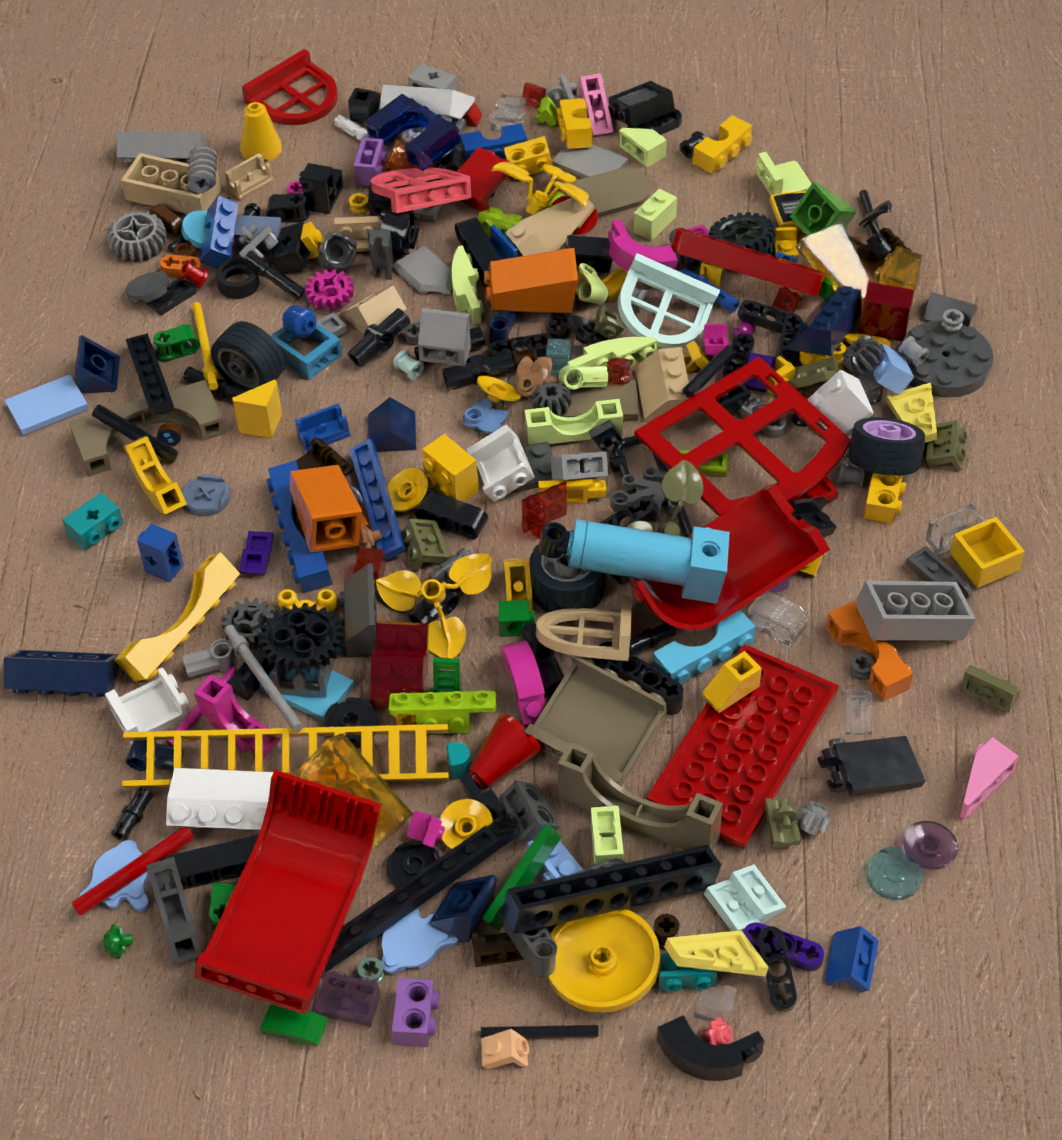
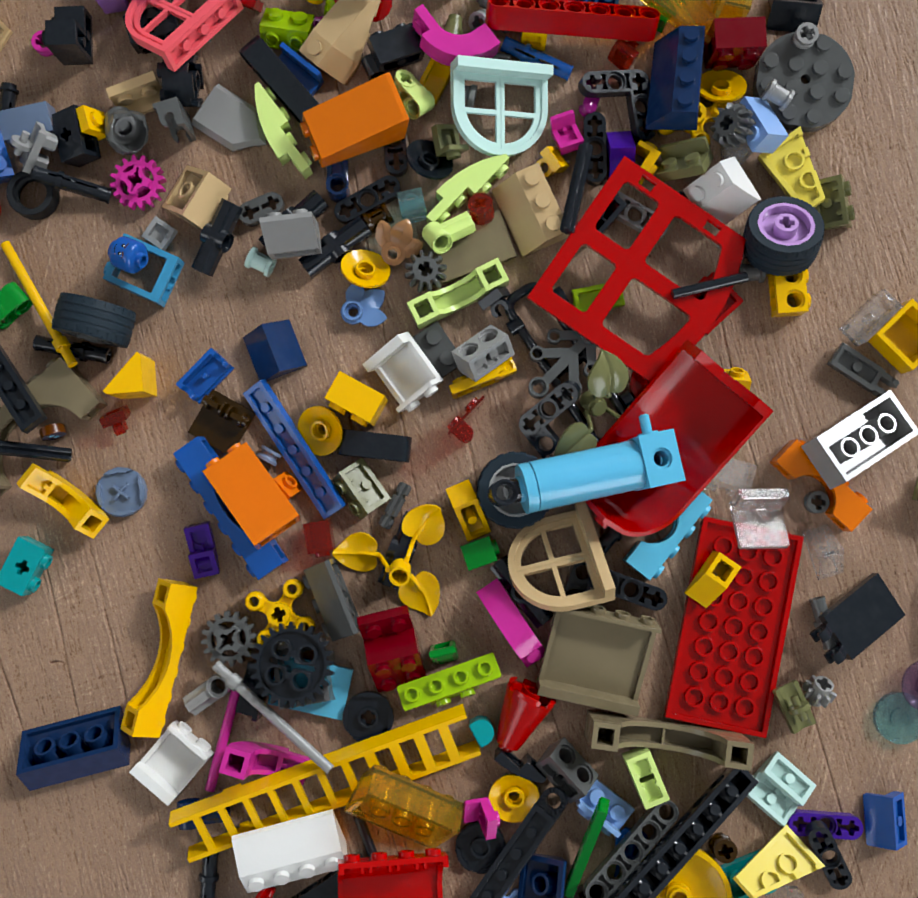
camera: 15 degrees left, 35 degrees up
(160, 552) = (108, 592): blue brick -> none
(229, 438) = (116, 419): none -> clear red tile
(287, 207) = (43, 76): black piece -> none
(354, 201) = (111, 40): yellow bush -> none
(368, 537) = (304, 504): medium nougat plant -> none
(798, 648) = (759, 518): none -> clear bracket
(805, 461) = (709, 285): none -> black bar
(812, 513) = (727, 346): black bracket -> none

